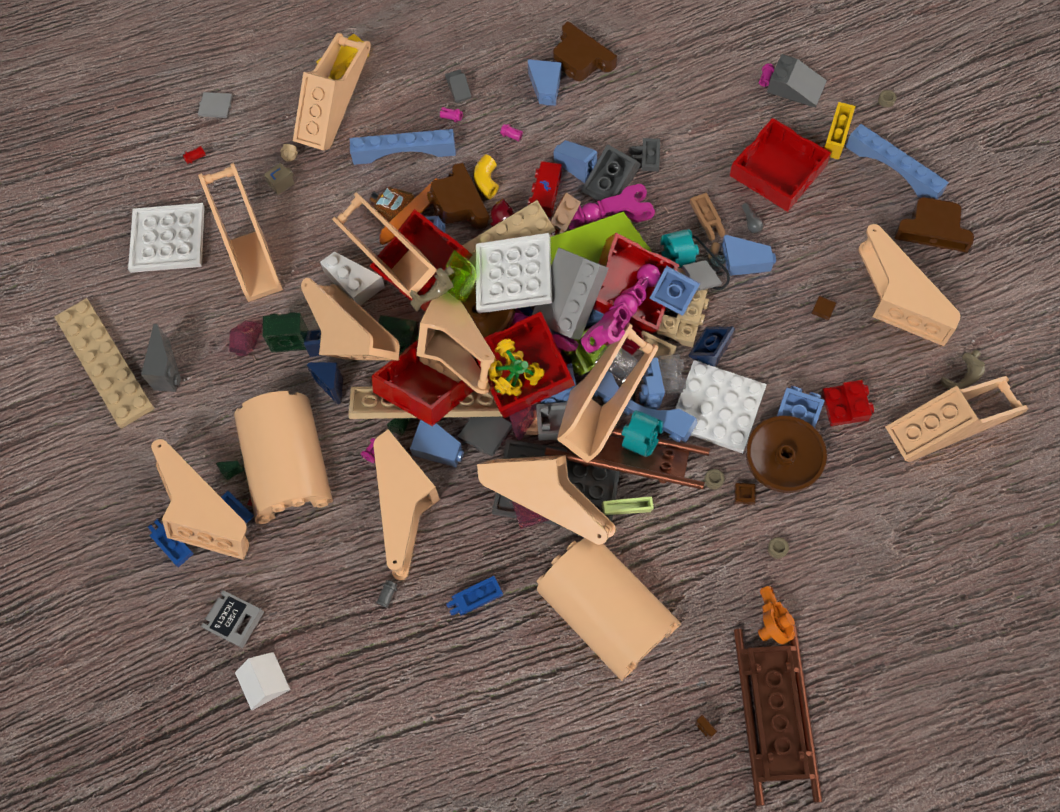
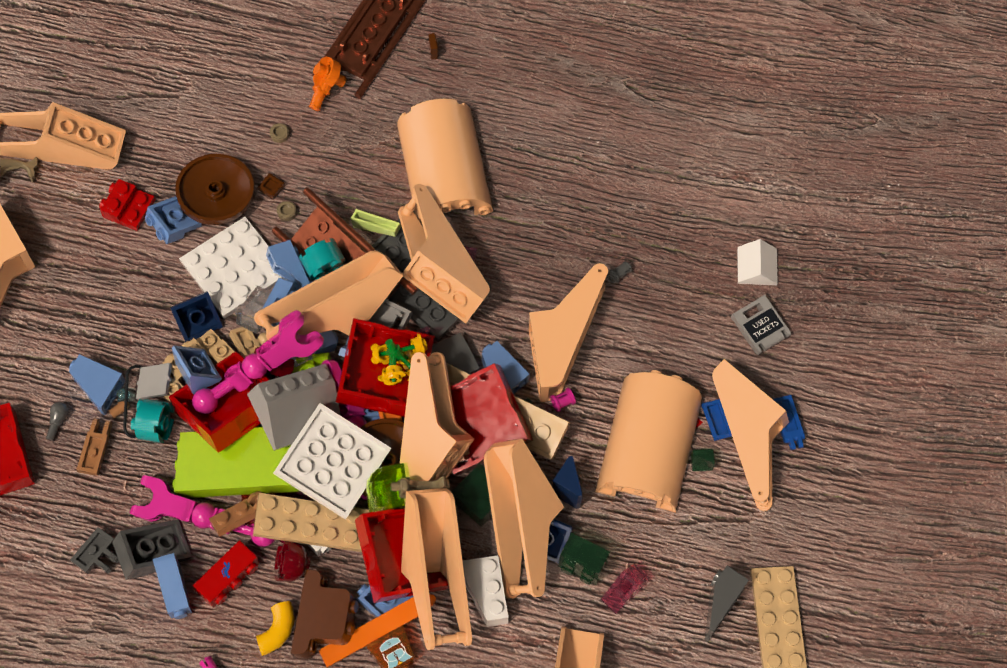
camera: 155 degrees left, 0 degrees up
(475, 596) = (547, 229): blue hinge -> none
(823, 308) = (70, 296): reddish brown tile -> none

